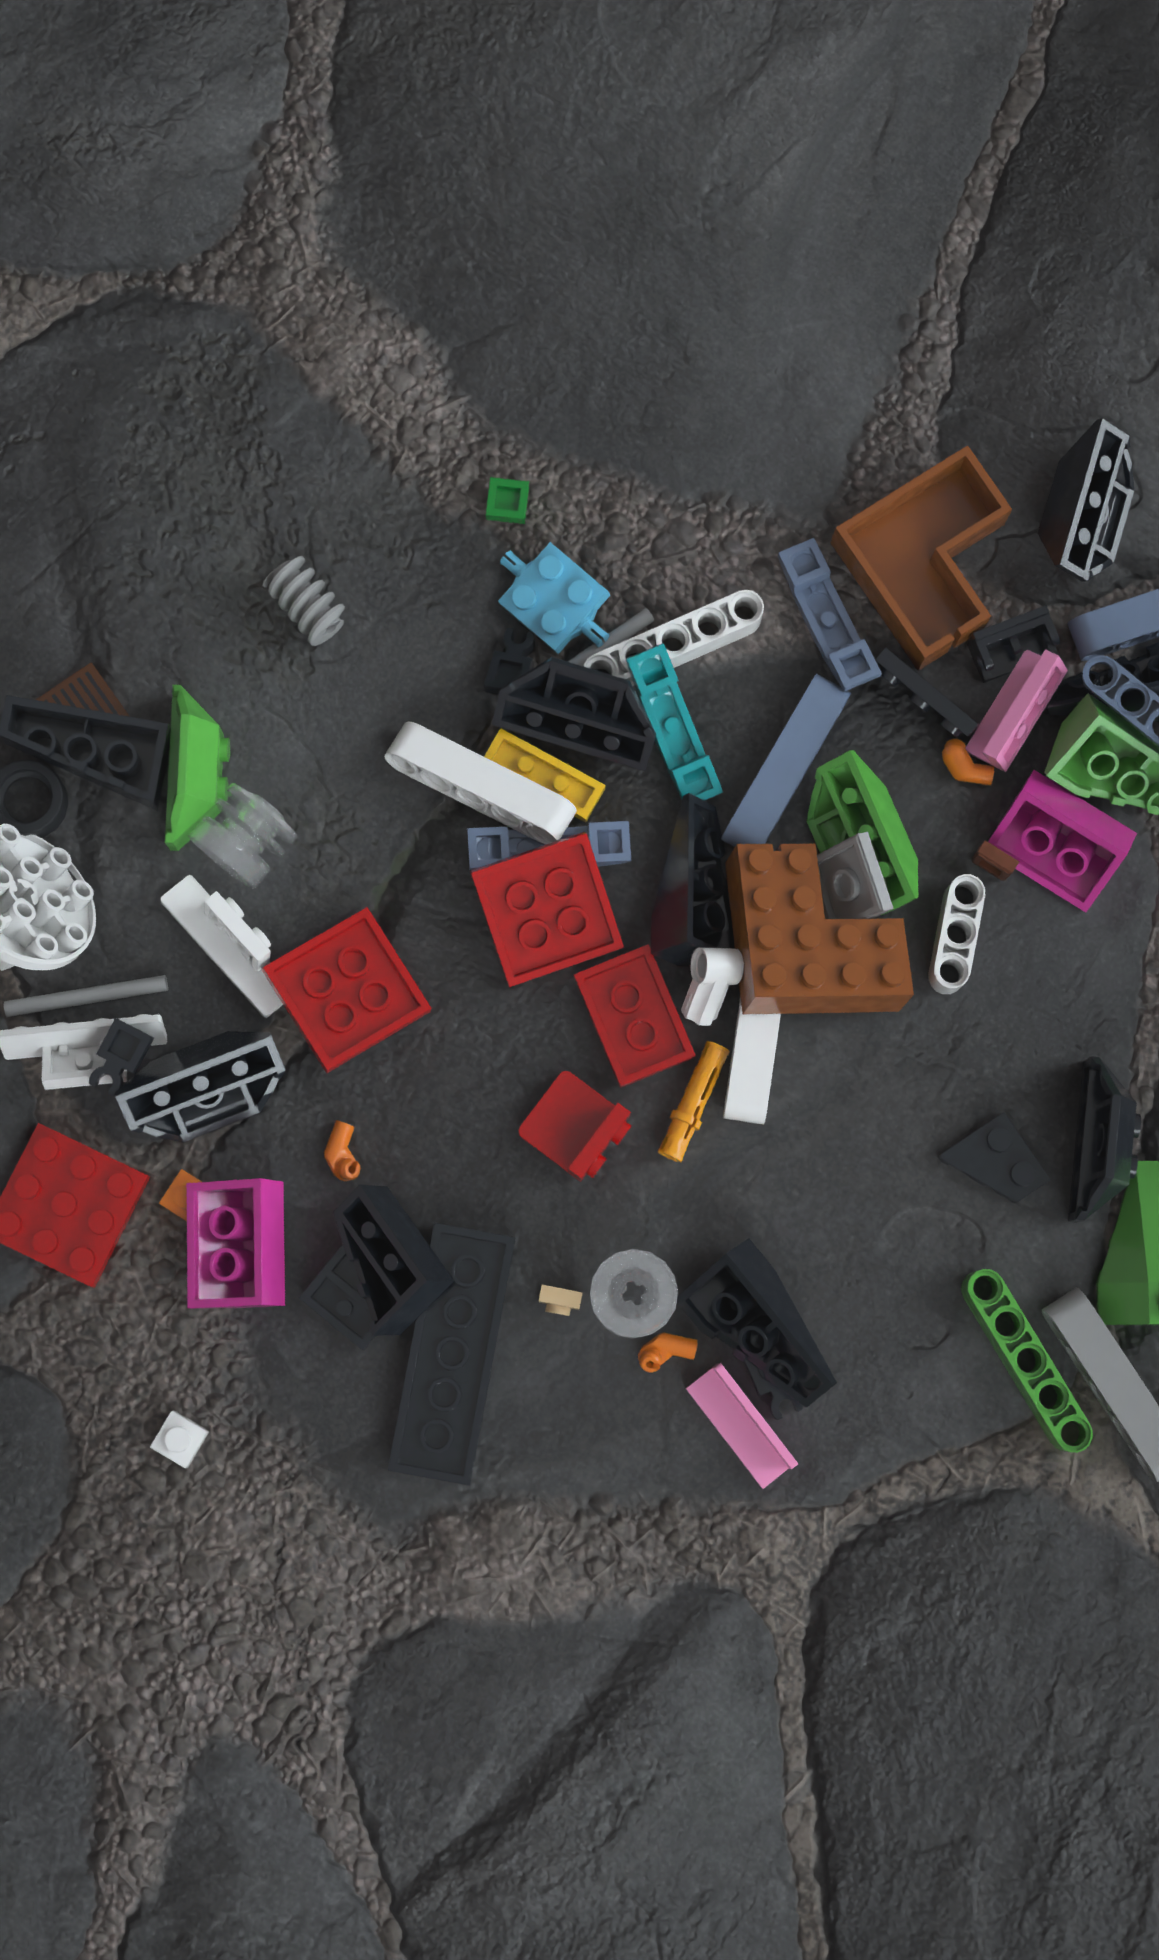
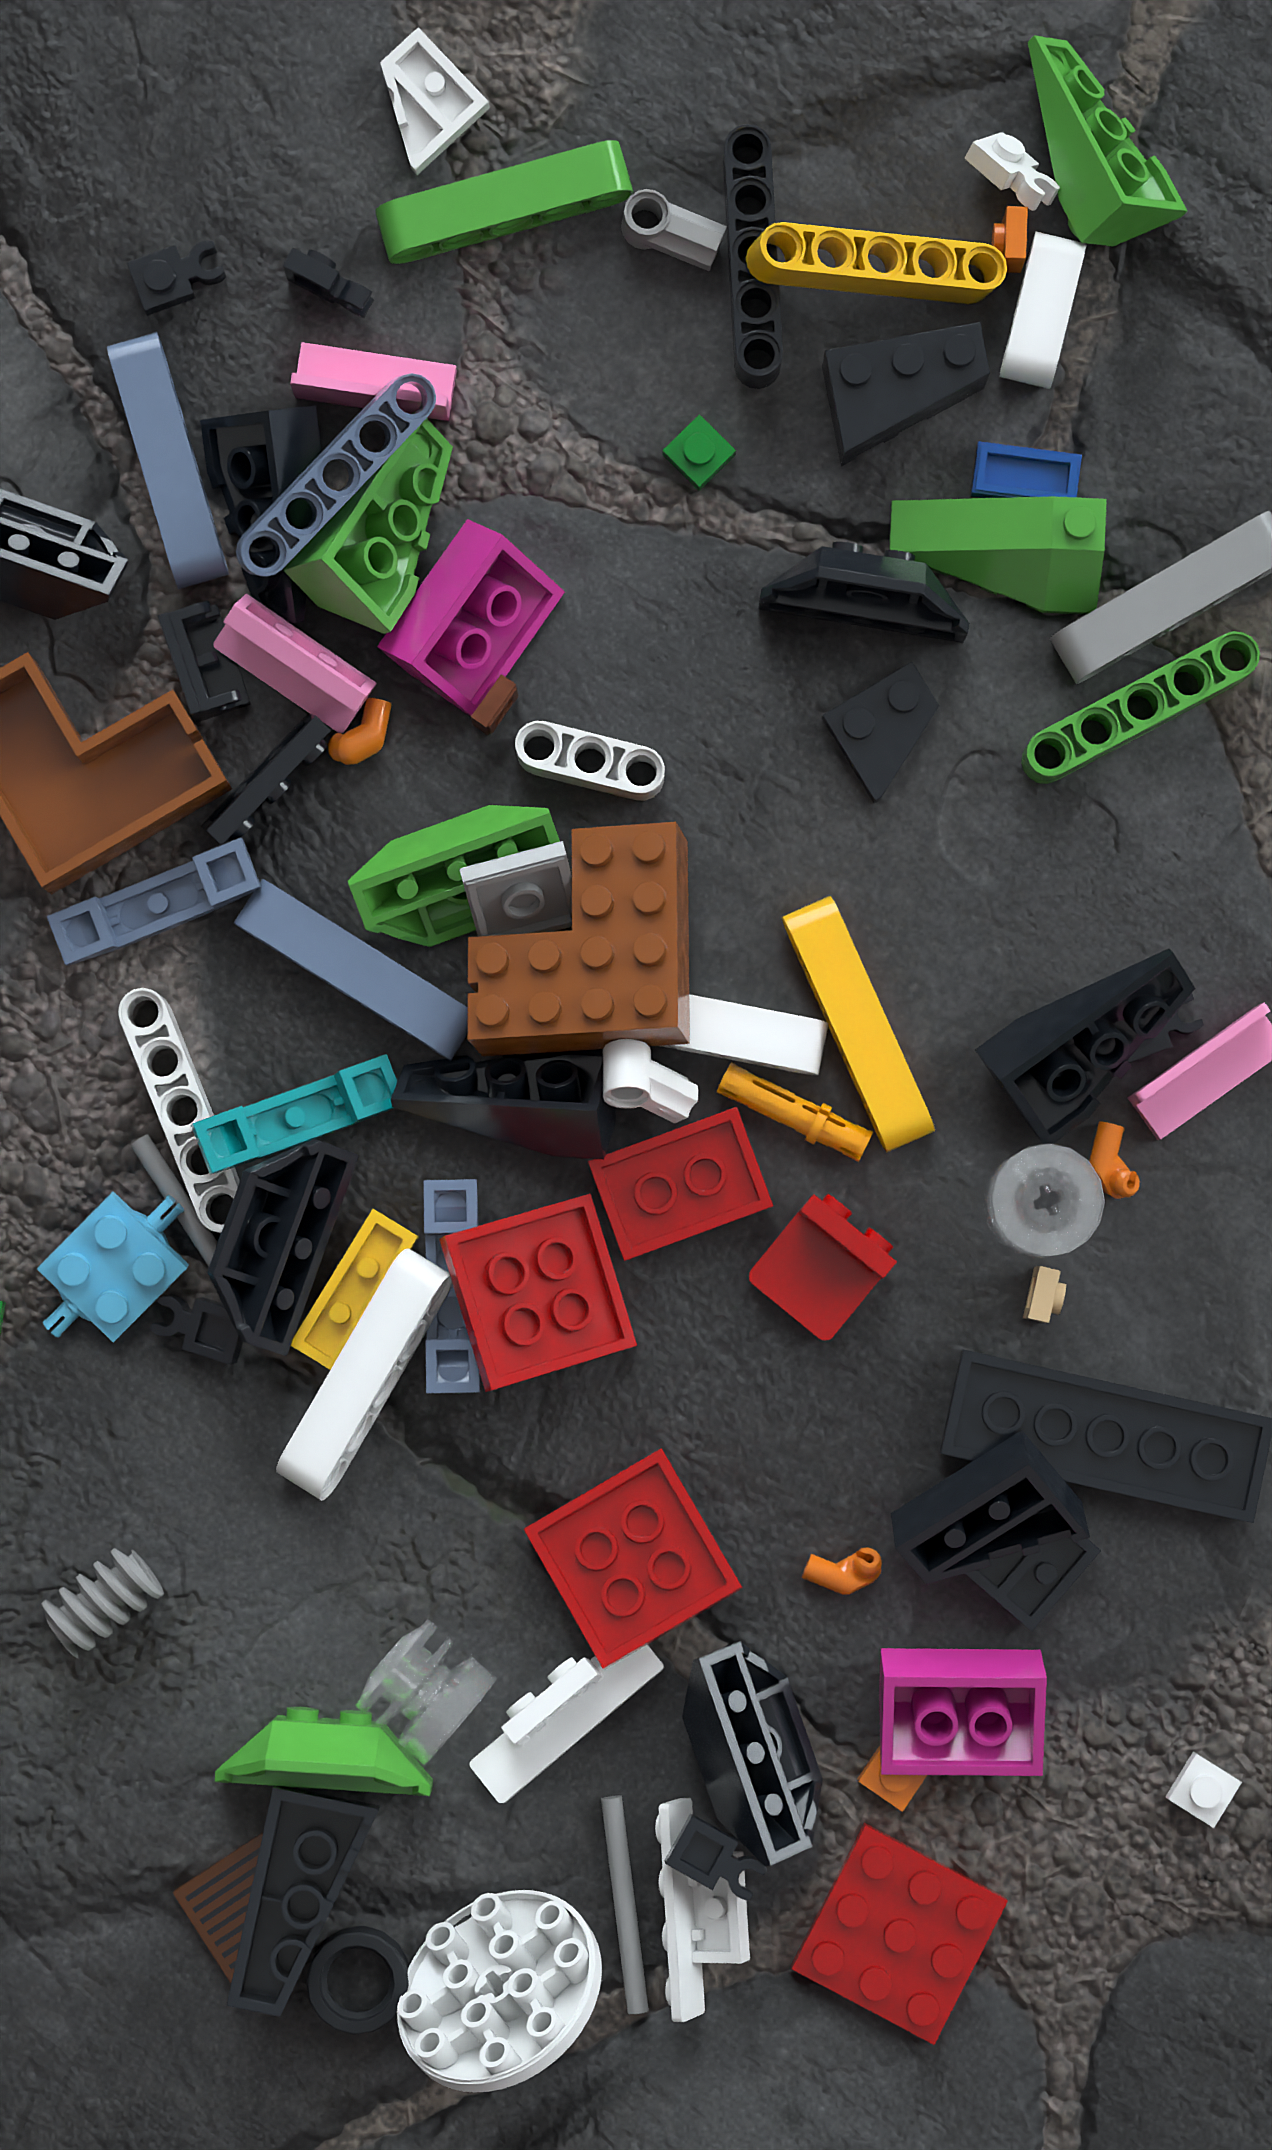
camera: 85 degrees left, 5 degrees up
(764, 1147) = (858, 1024): none -> yellow beam

